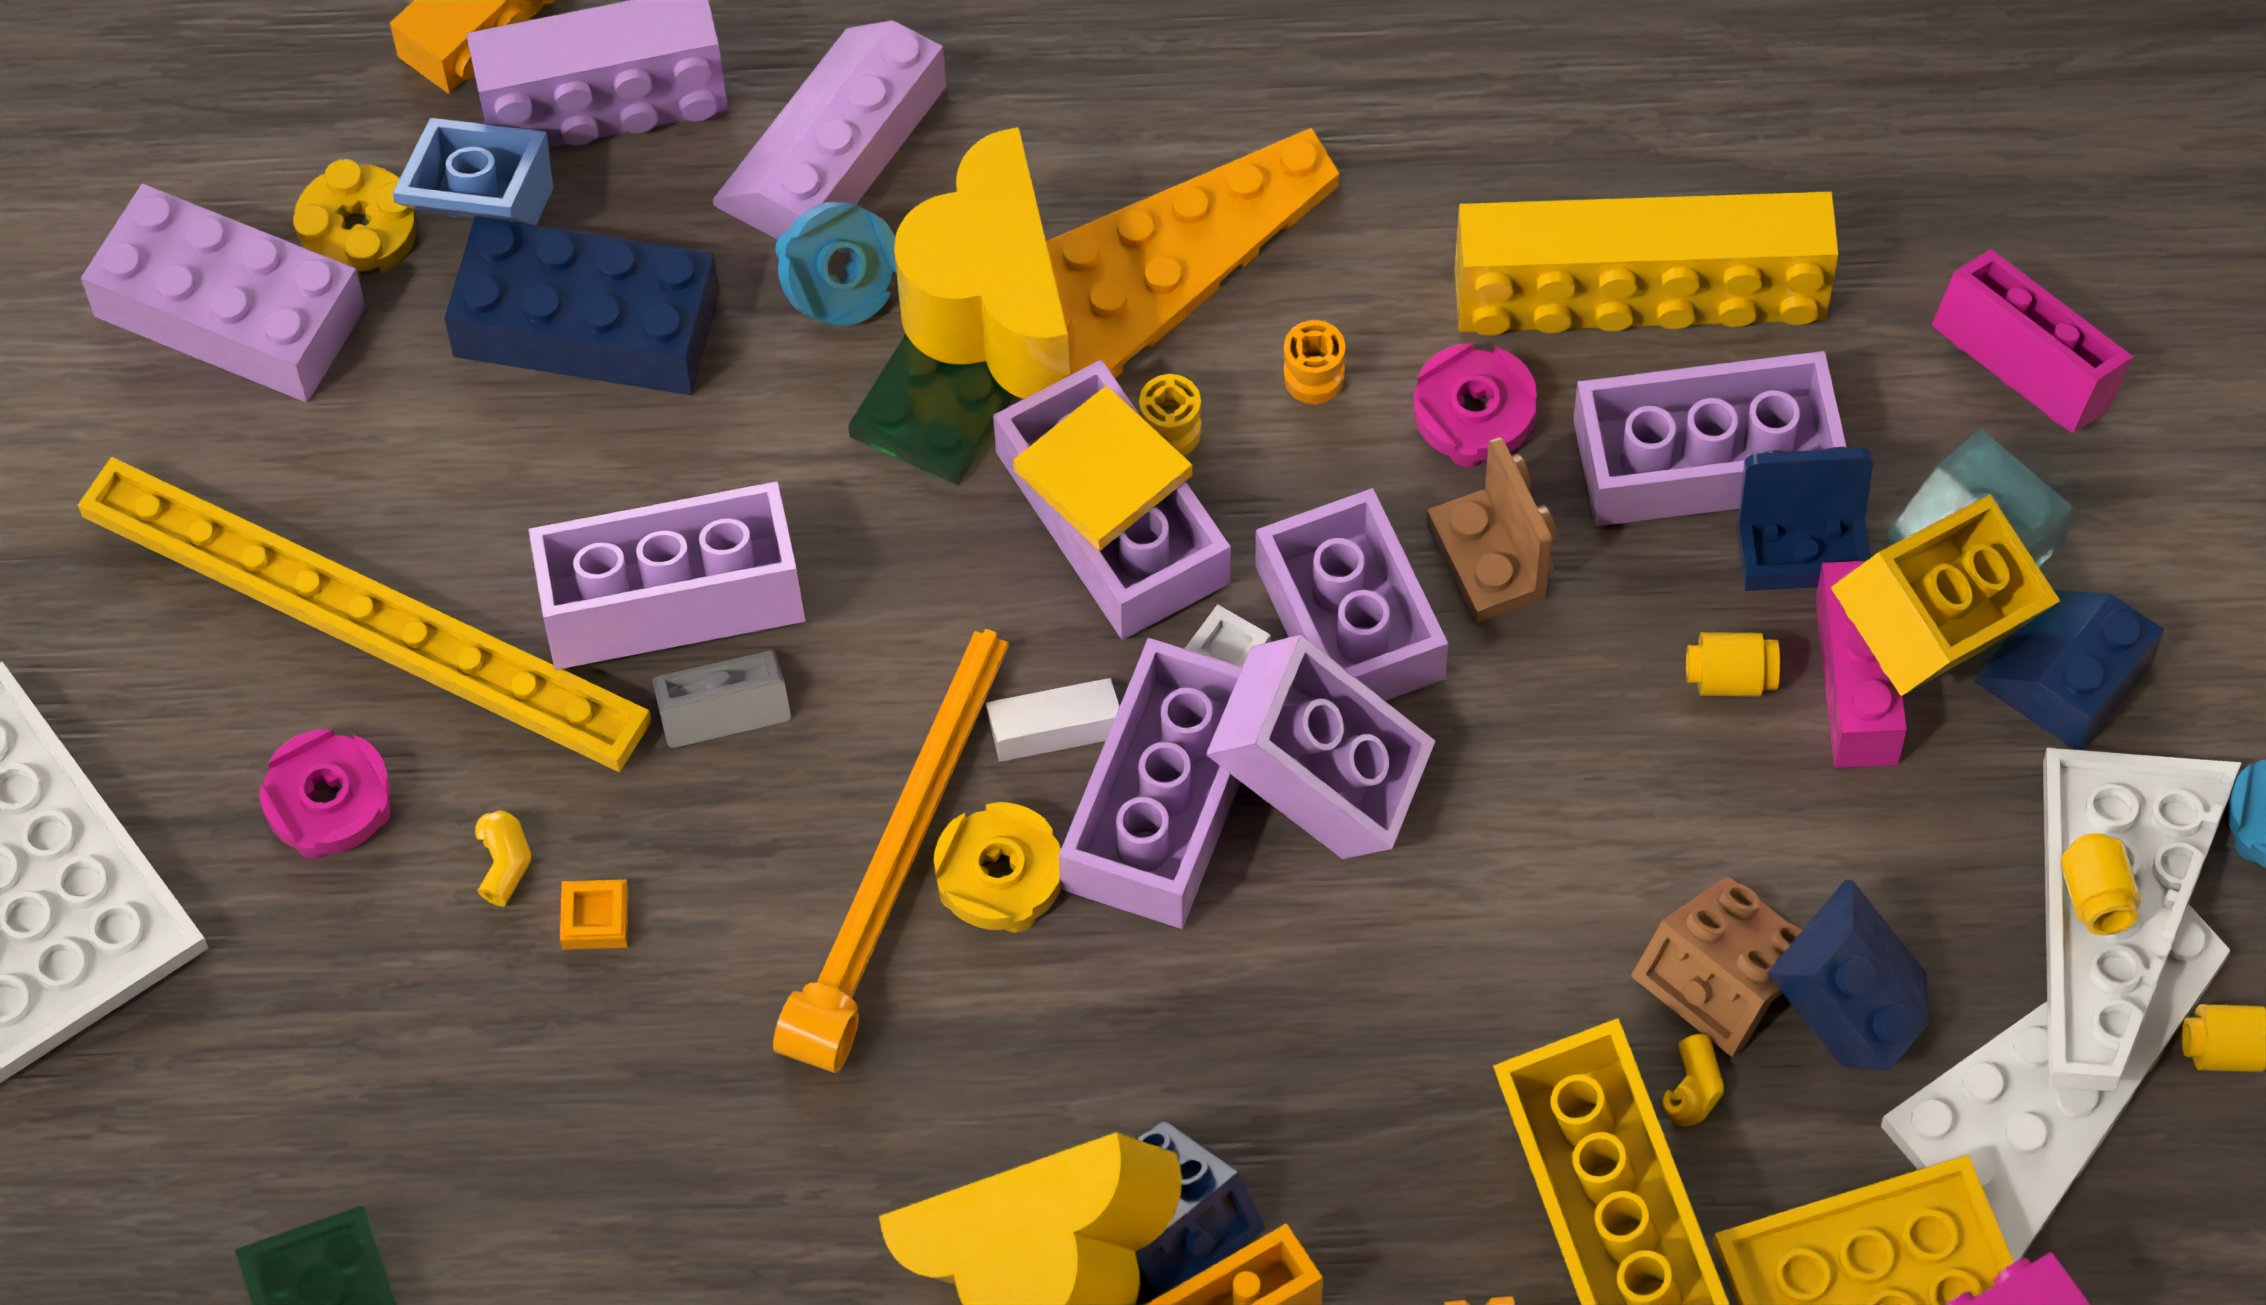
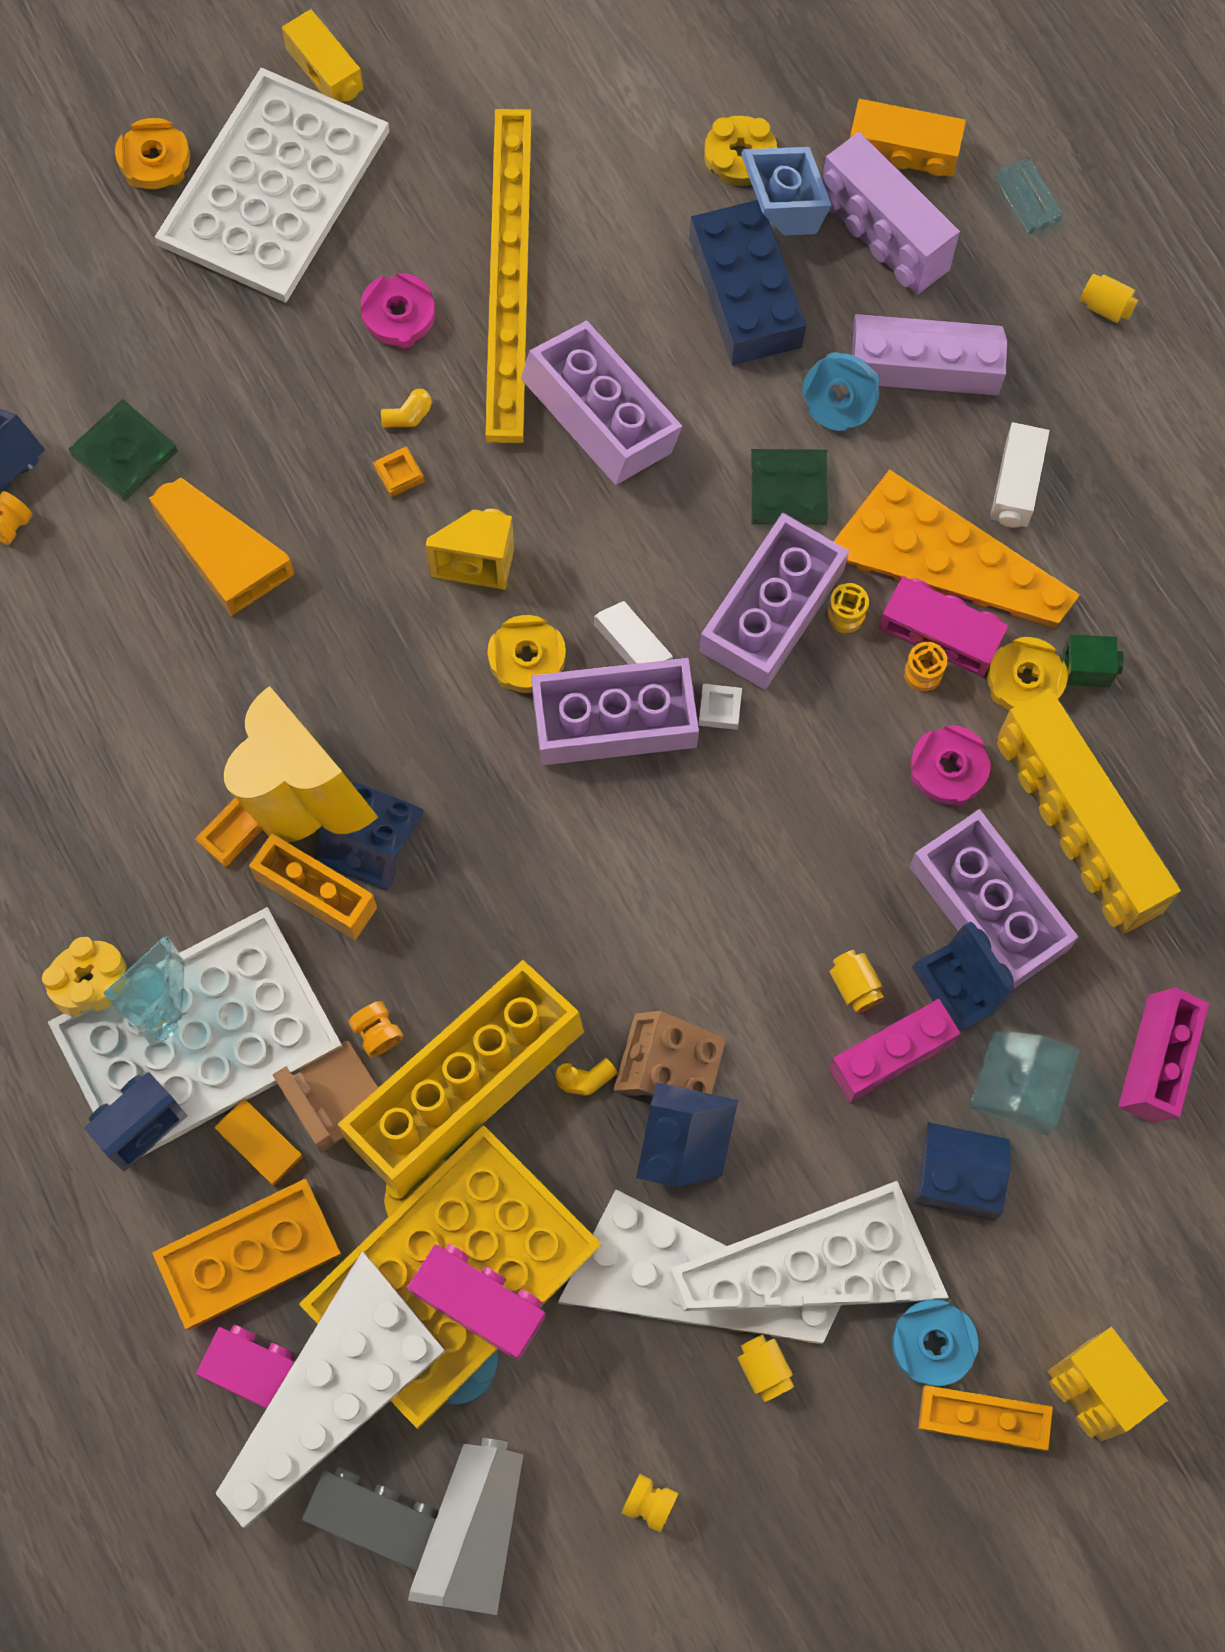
camera: 60 degrees right, 10 degrees up
(224, 292) = (656, 110): lavender brick -> none
(568, 1219) = (223, 549): none -> light orange slope
(721, 699) = (556, 469): light grey slope -> none
(812, 844) = (473, 549): none -> yellow slope
(824, 1018) = (387, 608): light orange piece -> none
(981, 273) = (871, 461): yellow brick -> none
(1092, 112) = (1019, 475): none -> white brick
(1102, 467) = (777, 582): yellow tile -> none
(1246, 320) = (924, 615): none -> dark pink brick
(1321, 747) = (668, 778): lavender brick -> none
(1353, 594) = (776, 756): lavender brick -> none
(1395, 279) = (1013, 658): none -> yellow plate
(1418, 160) = (1092, 660): none -> dark green brick
(1497, 538) = (861, 815): medium nougat bracket -> none
(1945, 594) = (948, 1075): yellow brick -> none
(2101, 884) = (807, 1245): yellow brick -> none

